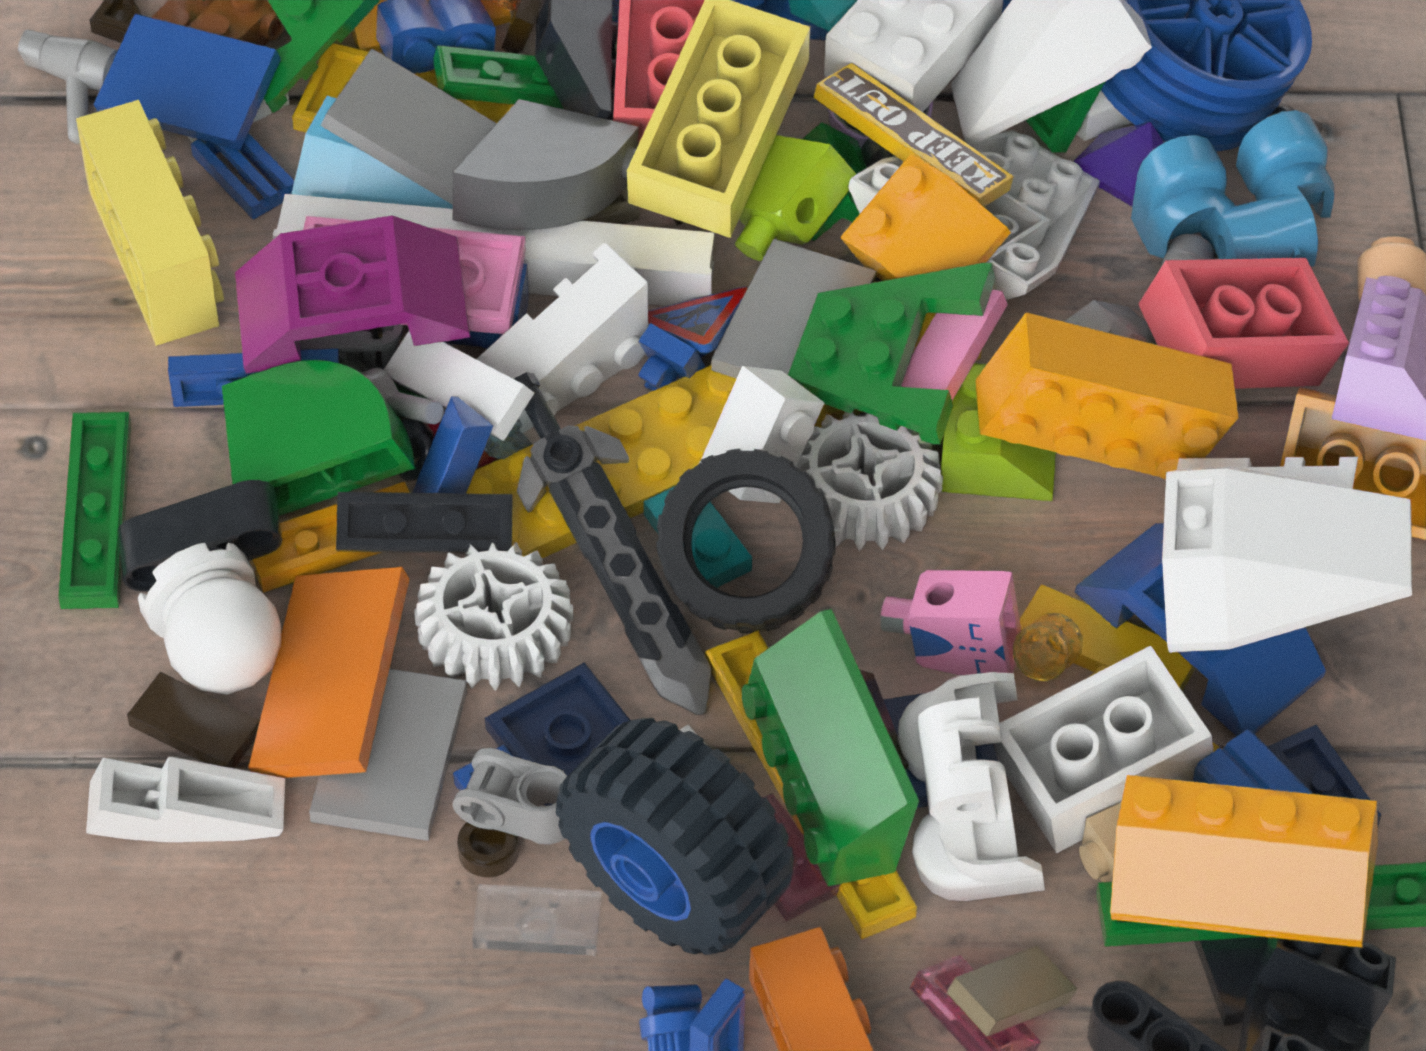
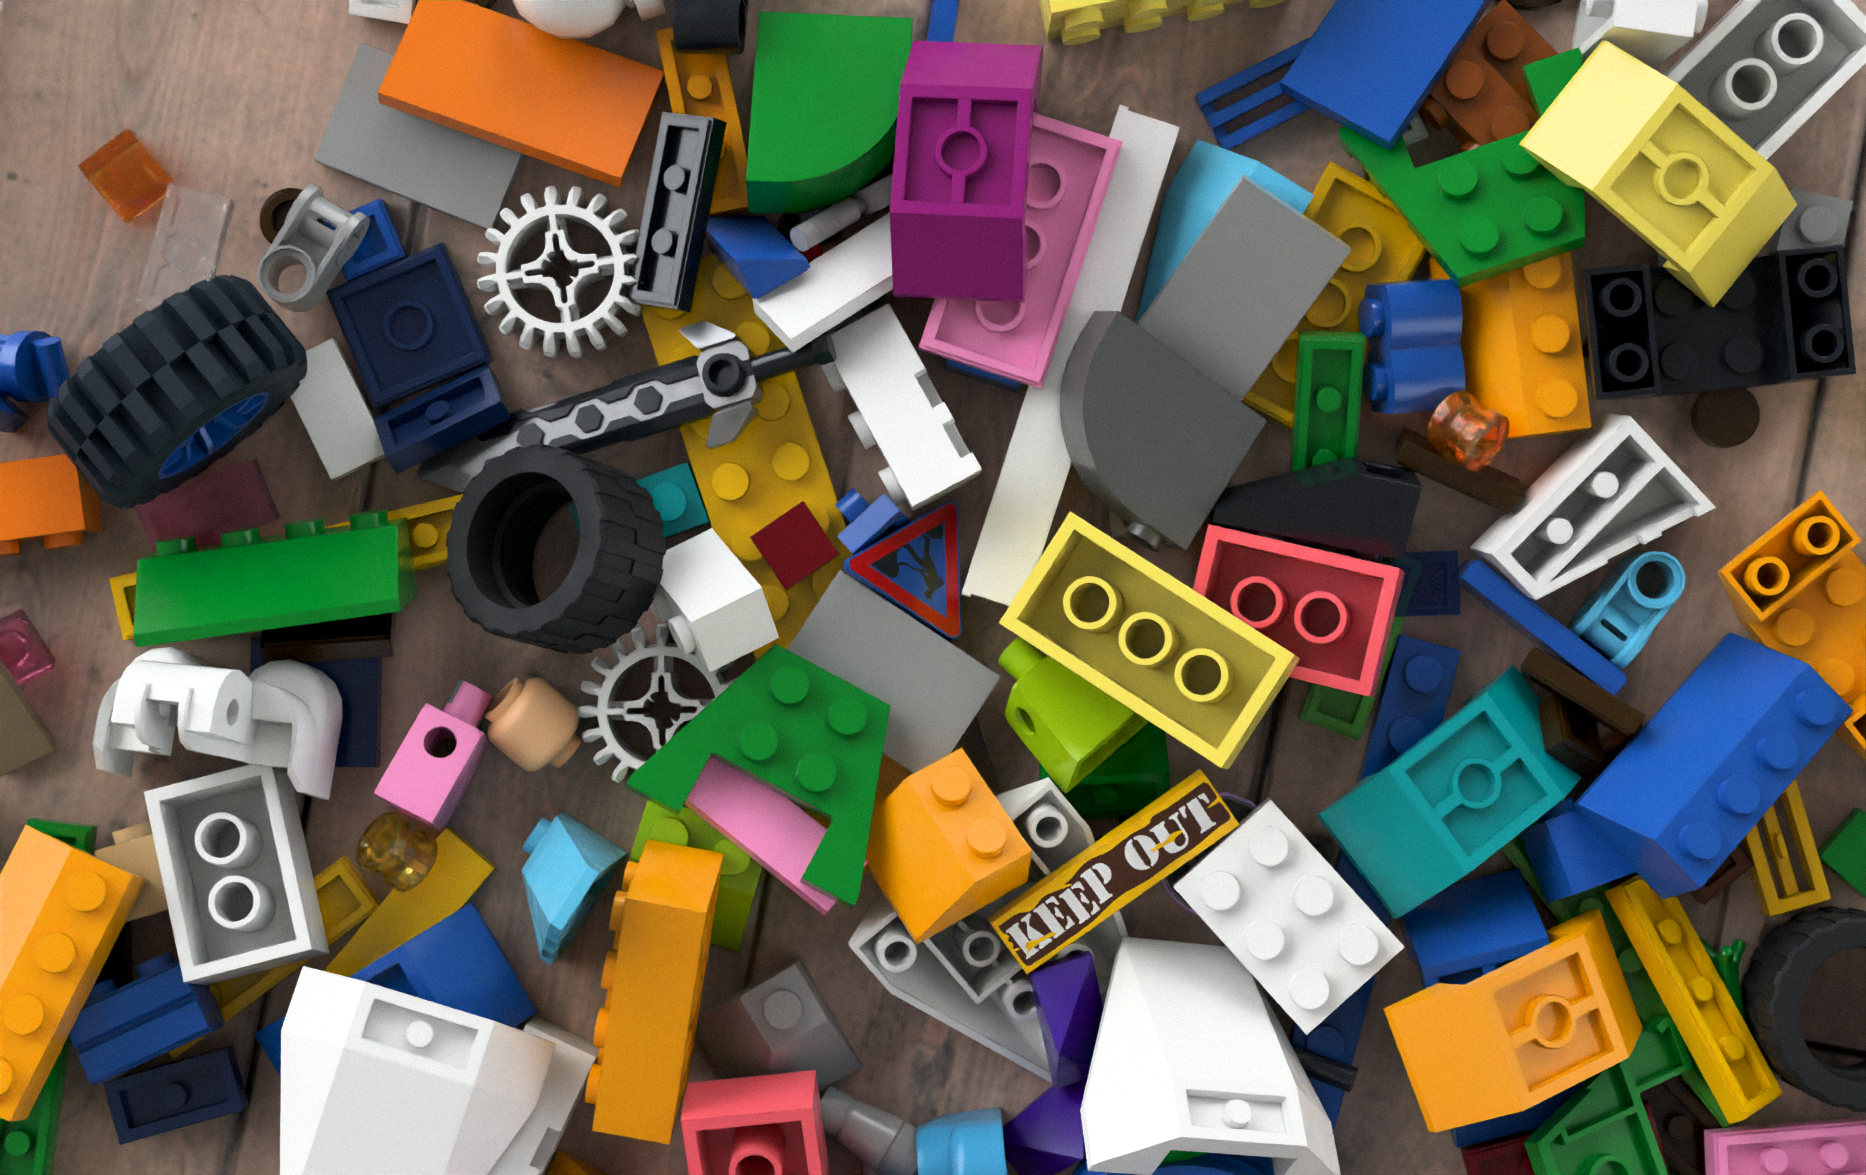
camera: 105 degrees right, 35 degrees up
(470, 986) = (127, 175): none -> clear orange slope
(645, 678) = (442, 418): none -> dark blue plate
(696, 397) = (794, 545): none -> dark red tile
(898, 561) = (533, 724): none -> light nougat head
(1041, 479) = (565, 879): none -> medium azure wedge
(1044, 157) = (1068, 1014): none -> dark purple slope

